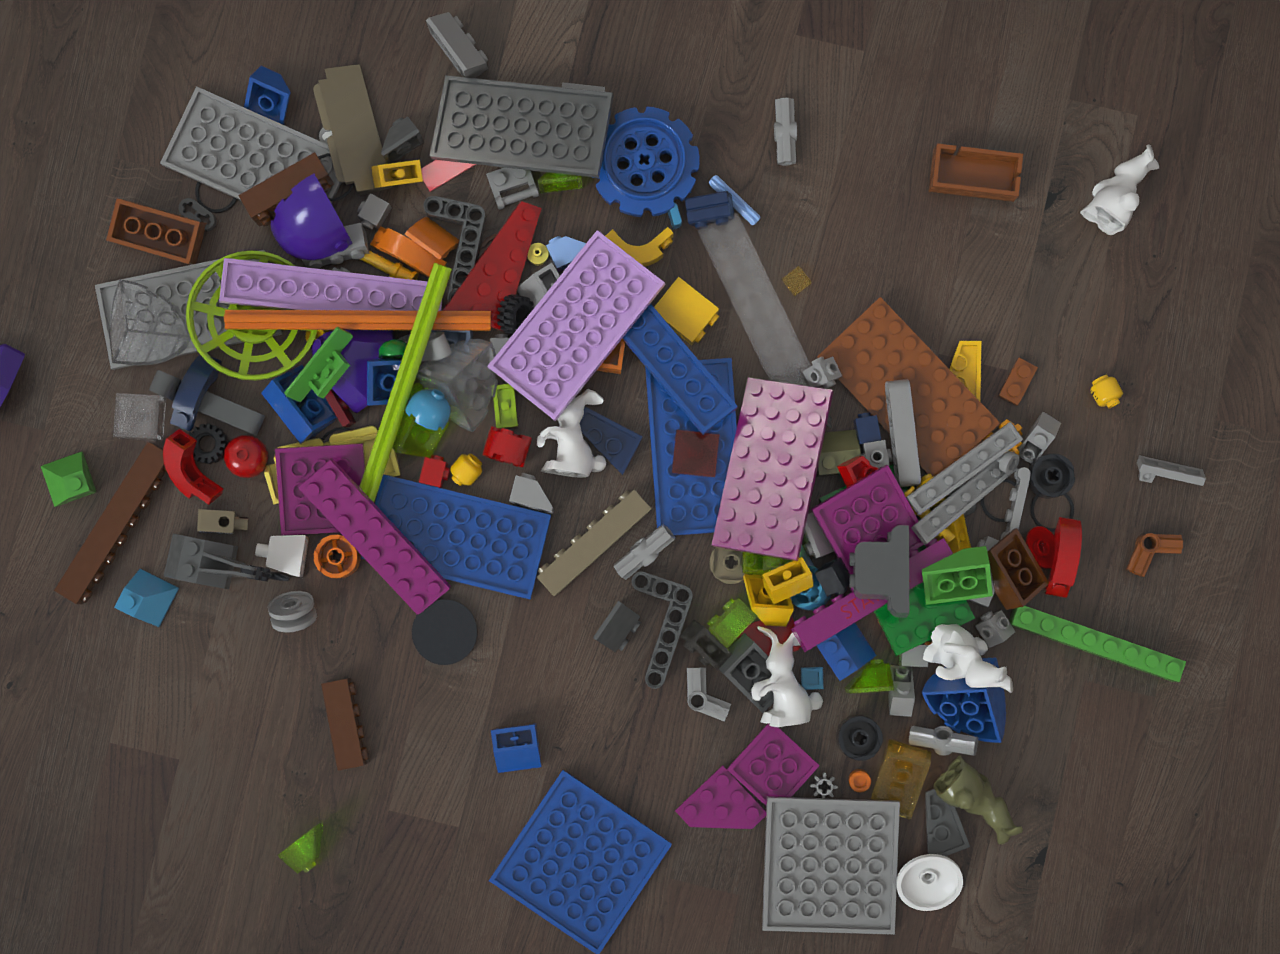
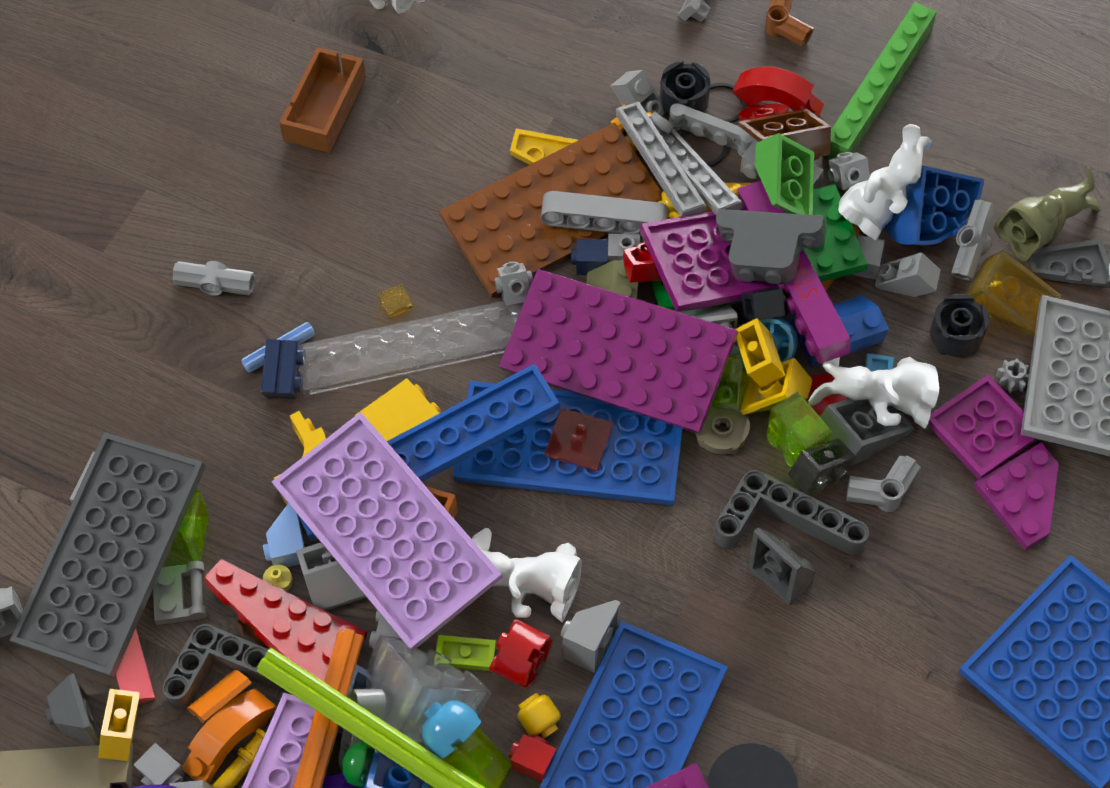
camera: 75 degrees left, 25 degrees down
(510, 306) = (349, 610): black tyre -> none
(516, 748) = (922, 719): blue slope -> none
(594, 542) = (668, 577): dark tan brick -> none
(610, 438) = (541, 531): dark blue wing -> none
(644, 551) = (691, 517): light grey piece -> none
(672, 140) = (203, 425): blue piece -> none
(675, 217) = (277, 411): dark azure tile -> none
(859, 780) = (1010, 341): orange tile -> none
(872, 678) = (891, 295): clear neon green slope -> none
(1017, 381) = (570, 108): dark orange plate -> none
(1106, 391) = (601, 28): yellow head -> none

